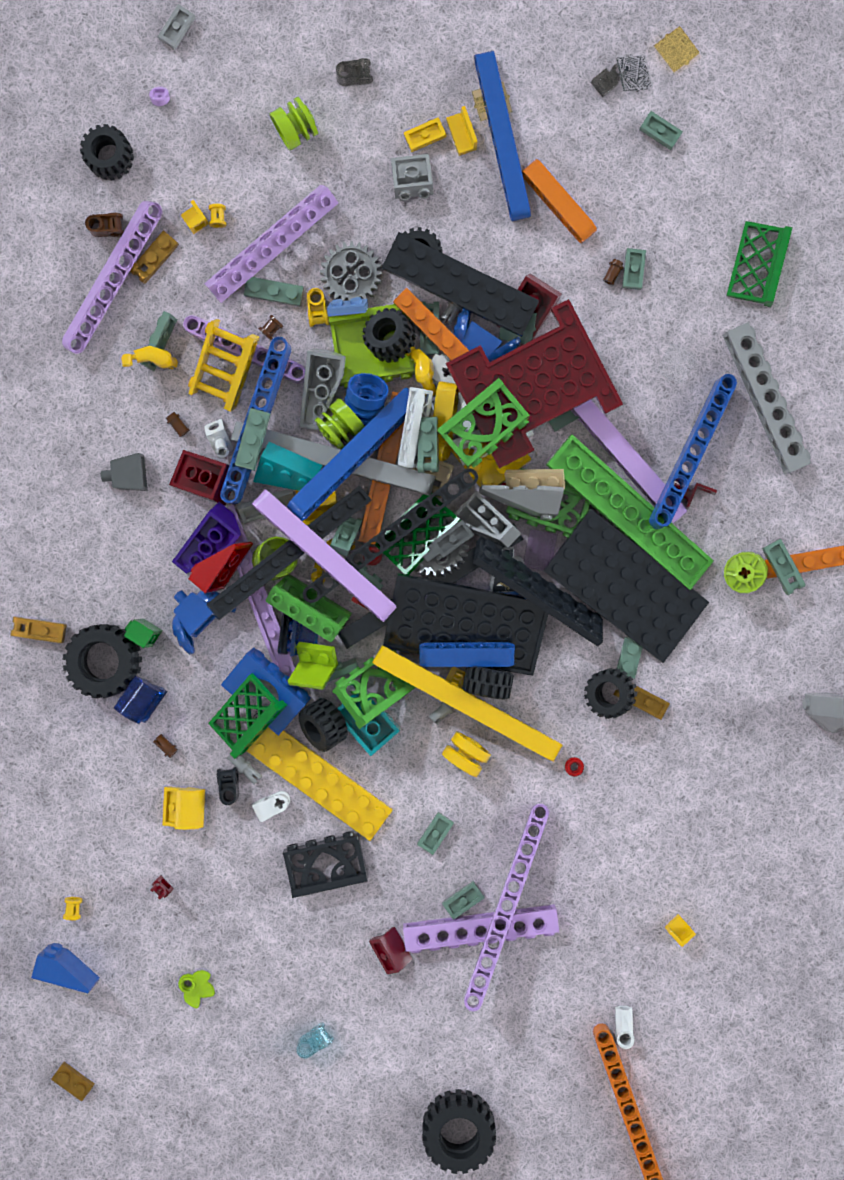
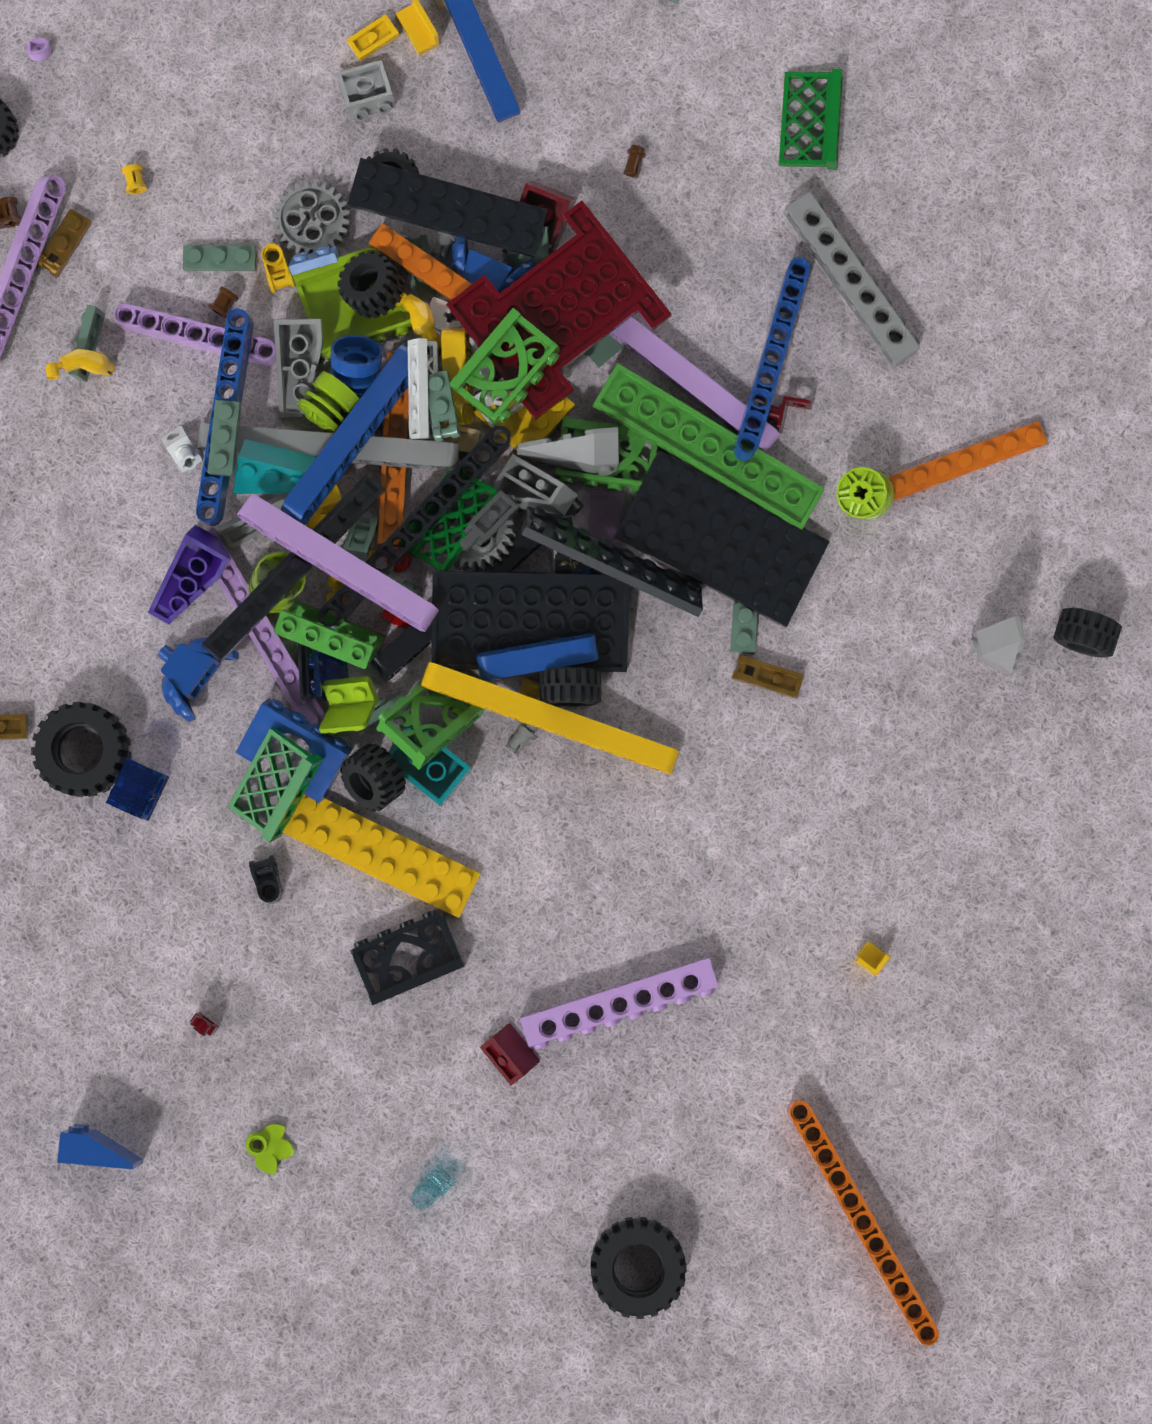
camera: 15 degrees left, 5 degrees down
(72, 908) = (93, 1073): yellow bush -> none
(72, 1081) = (130, 1300): pearl gold plate -> none
(127, 473) = (74, 512): dark grey torso -> none
(142, 632) = (126, 704): green brick -> none
(162, 743) = (178, 845): reddish brown pin -> none
(178, 425) = (129, 443): reddish brown pin -> none
(183, 807) = (214, 917): yellow brick -> none
(194, 218) = (106, 187): yellow panel -> none
(200, 476) = (167, 500): dark red slope -> none
(218, 569) = (209, 603): red slope -> none
(242, 363) = (195, 349): yellow fence -> none
(245, 768) = (284, 854): light grey pin -> none
(268, 806) = (322, 898): white piece -> none
(271, 243) = (206, 200): lavender brick -> none
(294, 123) = (210, 52): lime wheel -> none
(435, 833) = (540, 892): sand green plate -> none
(463, 900) = (590, 971): sand green plate -> none
(465, 755) = (560, 780): yellow wheel -> none
(500, 934) = (644, 974): lavender beam -> none
(535, 477) = (578, 424): tan plate -> none
(559, 201) = (551, 88): orange beam -> none
(578, 771) = (700, 785): red plate -> none
(596, 698) = (708, 668): black tyre -> none
(624, 1025) = (824, 1092): white piece -> none
(633, 269) = (658, 153): sand green plate -> none
(783, 566) = (911, 479): sand green plate -> none

